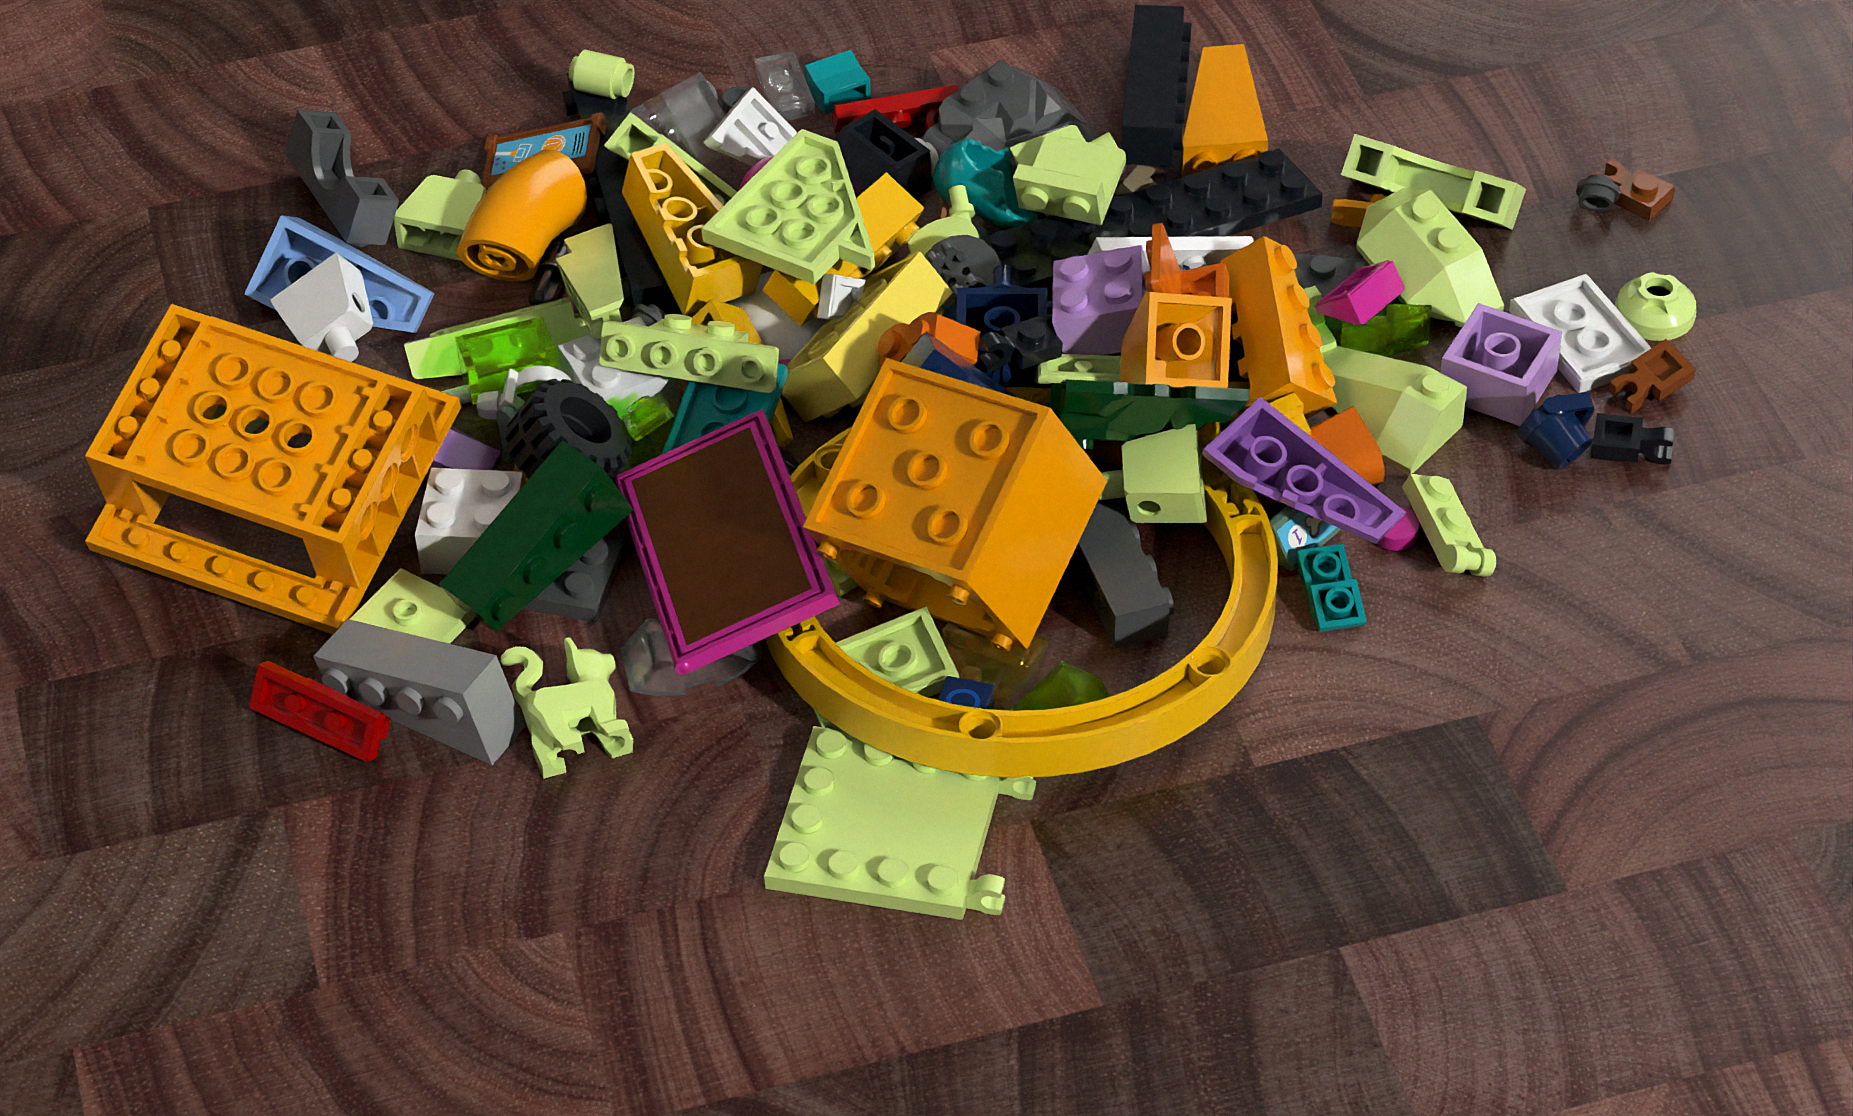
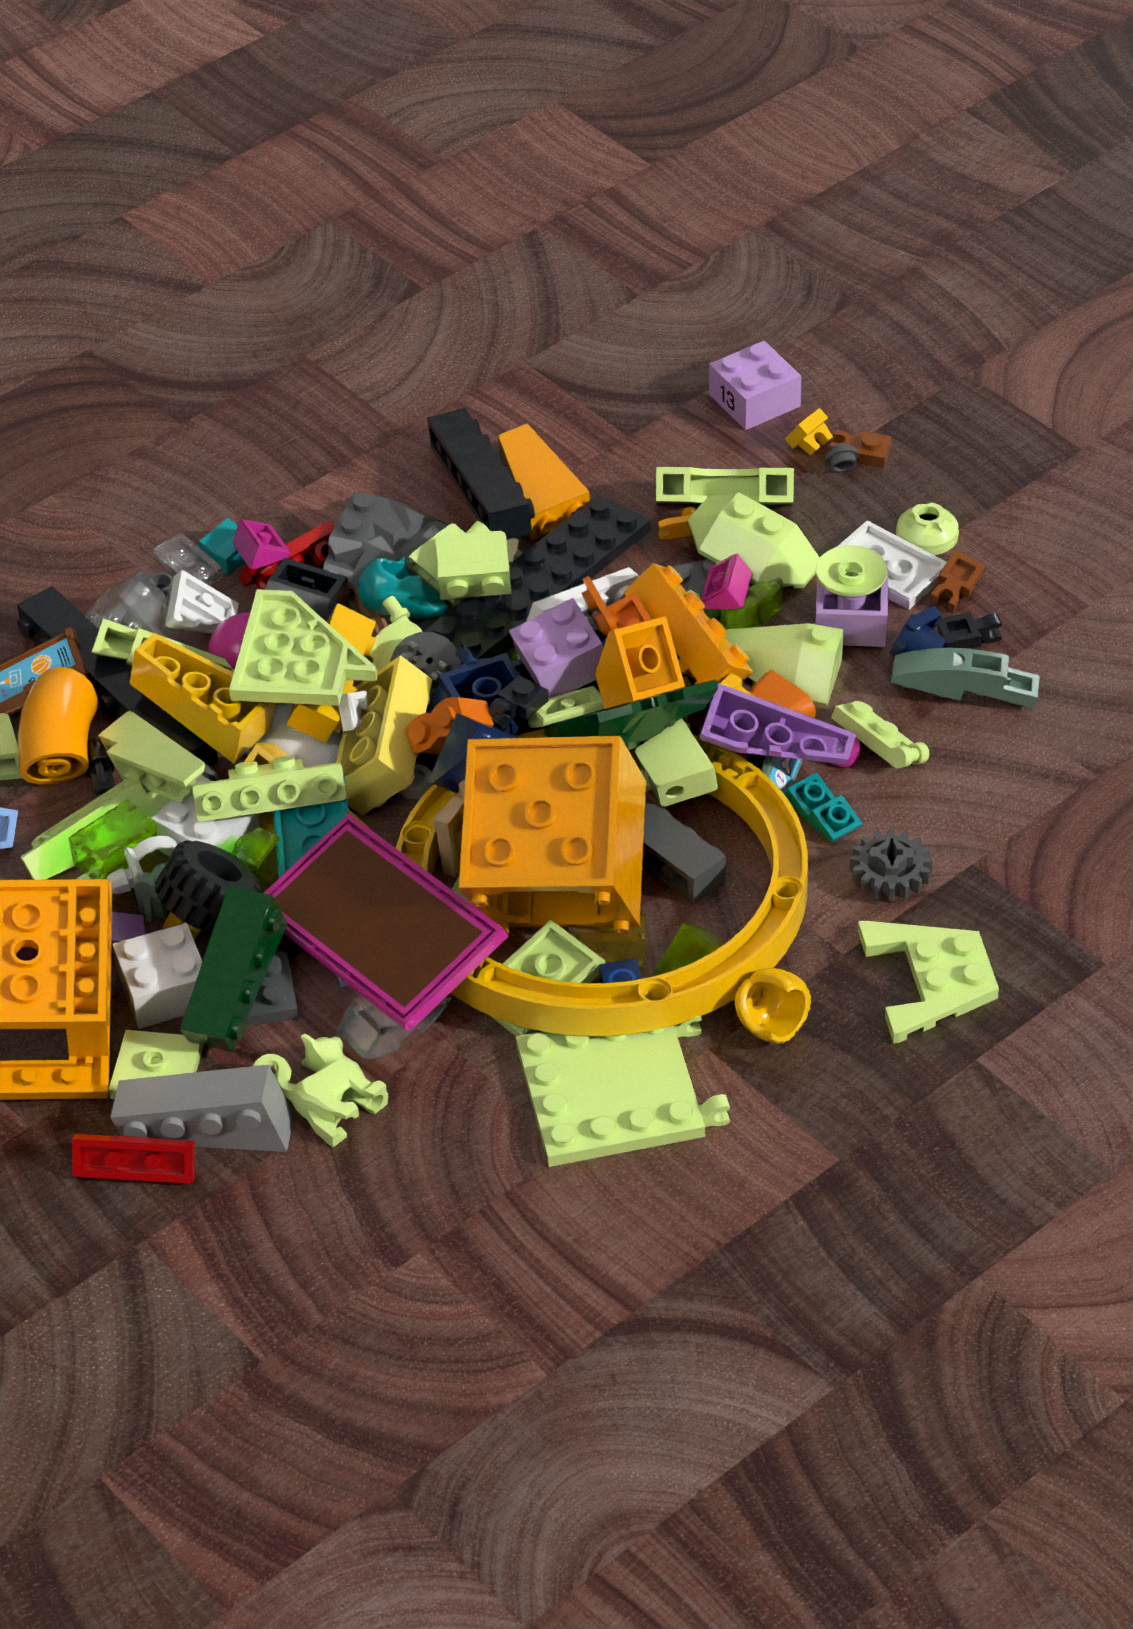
camera: 25 degrees left, 0 degrees up
(601, 74) = (52, 596): yellowish green brick -> none
(862, 86) = (259, 544): none -> dark pink slope
(1120, 794) = (773, 1004): none -> yellow piece
(1365, 830) = (946, 966): none -> yellowish green wing
(1367, 680) = (909, 863): none -> dark grey gear
(1506, 320) = (851, 570): none -> yellowish green dish
(1542, 79) = (754, 385): none -> lavender brick
(1577, 147) = (809, 429): none -> yellow tile
(1582, 479) = (953, 670): none -> sand green slope

